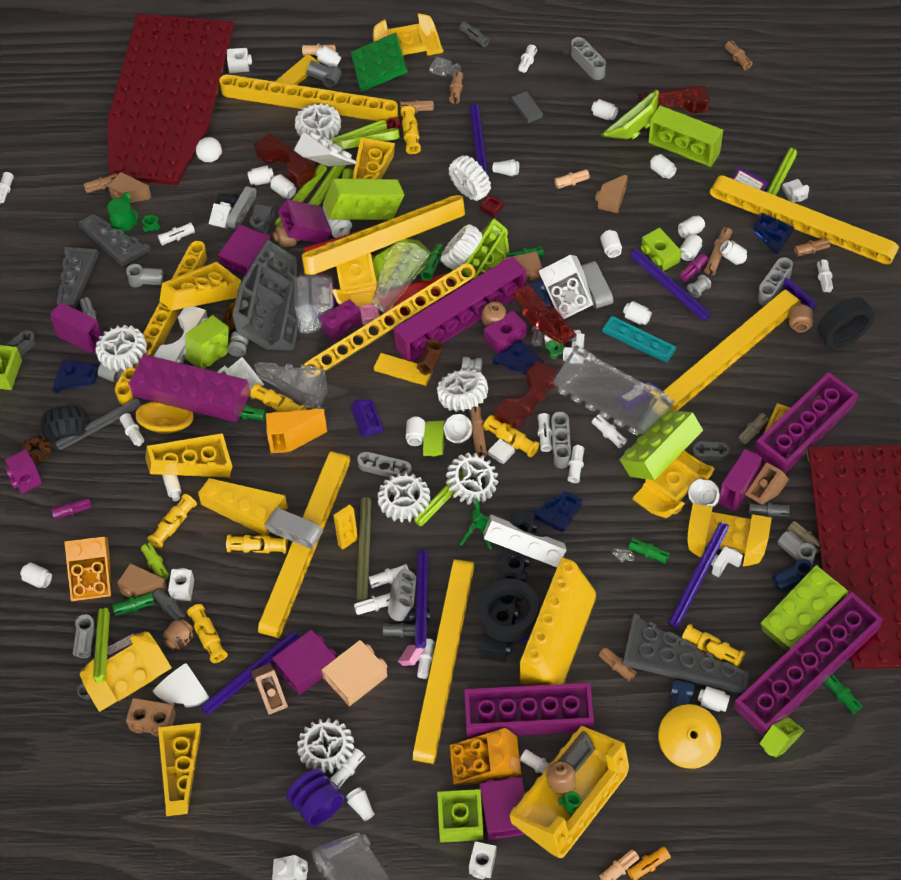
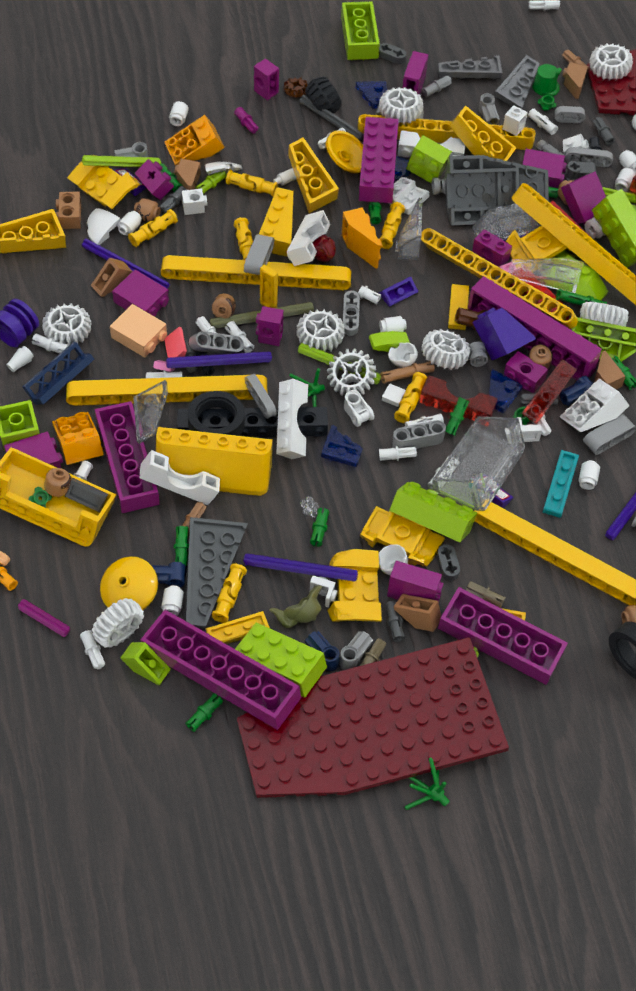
camera: 70 degrees right, 0 degrees up
(124, 150) = (611, 61): none -> white gear
(127, 624) = (154, 179): none -> magenta brick
(141, 546) = (215, 167): none -> white brick
(176, 208) = (569, 114): none -> light grey beam
(183, 251) = (515, 120): none -> white brick
(192, 656) = (129, 223): none -> white brick
(208, 186) = (604, 131): none -> dark grey axle
(218, 238) = (542, 145): none -> light grey axle
(264, 471) = (301, 248): none -> white arch
(294, 469) = (325, 248): none -> dark red hair
(346, 580) = (224, 306): none -> medium nougat head
(366, 443) = (368, 294): none -> white pin
(389, 637) = (175, 344): none -> coral slope
(392, 539) = (270, 326): none -> magenta brick
(396, 761) = (60, 380): none -> dark blue fence
(465, 335) = (501, 332): none -> dark purple slope
(483, 669) = (149, 409): none -> clear wedge
(488, 564) = (260, 396): none -> light grey beam
(516, 485) = (358, 411): none -> white piece
(547, 398) = (457, 416): none -> green pin
(574, 669) = (199, 487): none -> white arch
(652, 678) = (181, 546): none -> green pin
(709, 827) = (44, 618): none -> magenta axle
(740, 749) = (117, 622): none -> white gear
(744, 582) = (302, 612): none -> olive hair
(753, 646) = (236, 629): none -> yellow tile
(756, 785) = (92, 649): none -> white axle

